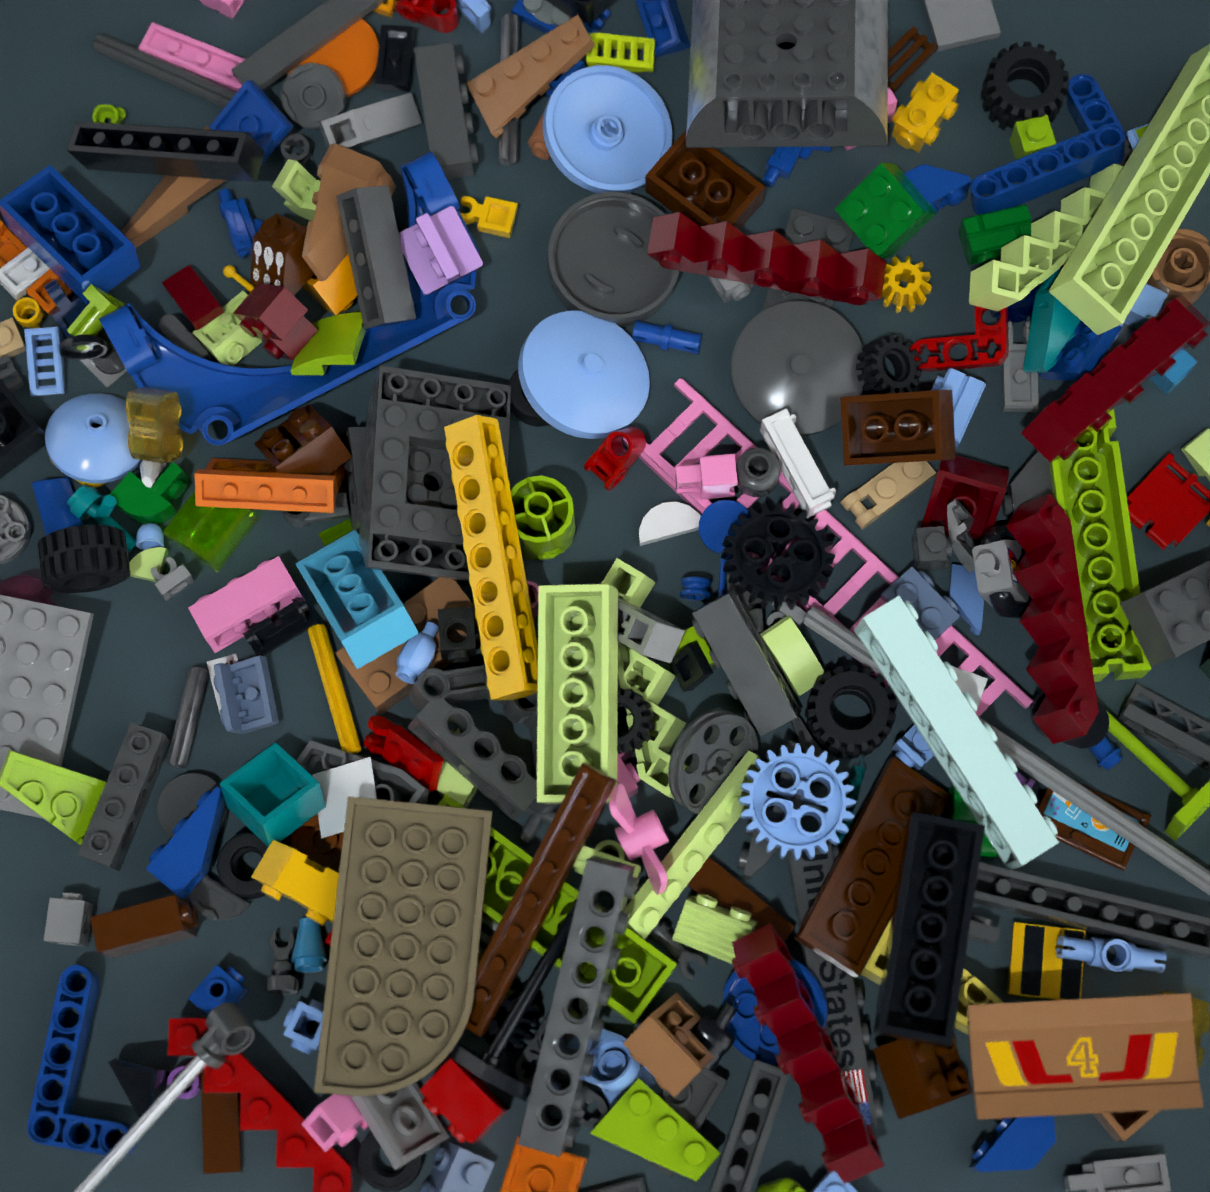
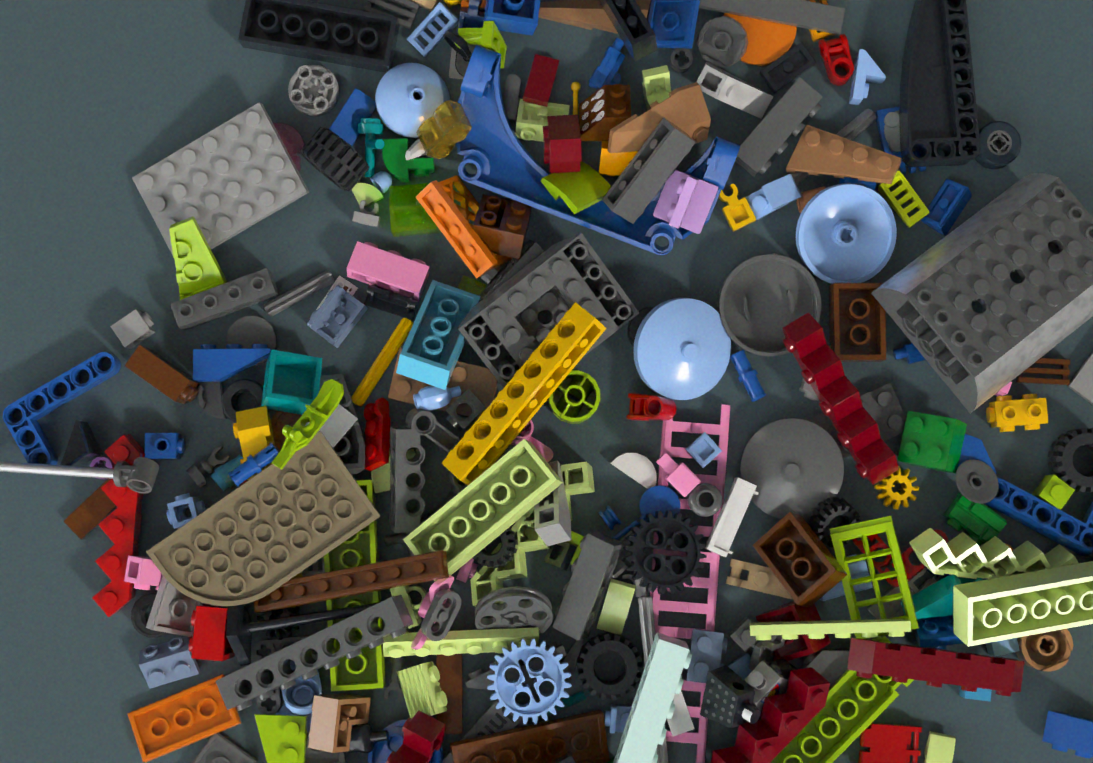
camera: 45 degrees right, 10 degrees up
(322, 896) = (253, 464): none -> blue pin
(328, 786) = (316, 414): none -> lime piece
(509, 168) = (773, 196): none -> light blue slope
(650, 827) = (441, 614): none -> dark grey plate
(705, 437) = (703, 450): none -> light blue tile
(918, 341) = (862, 530): none -> lime piece
(961, 198) = (982, 476): none -> dark grey piece
(984, 611) = (728, 699): none -> black torso
(1002, 437) = (840, 628): none -> yellowish green plate

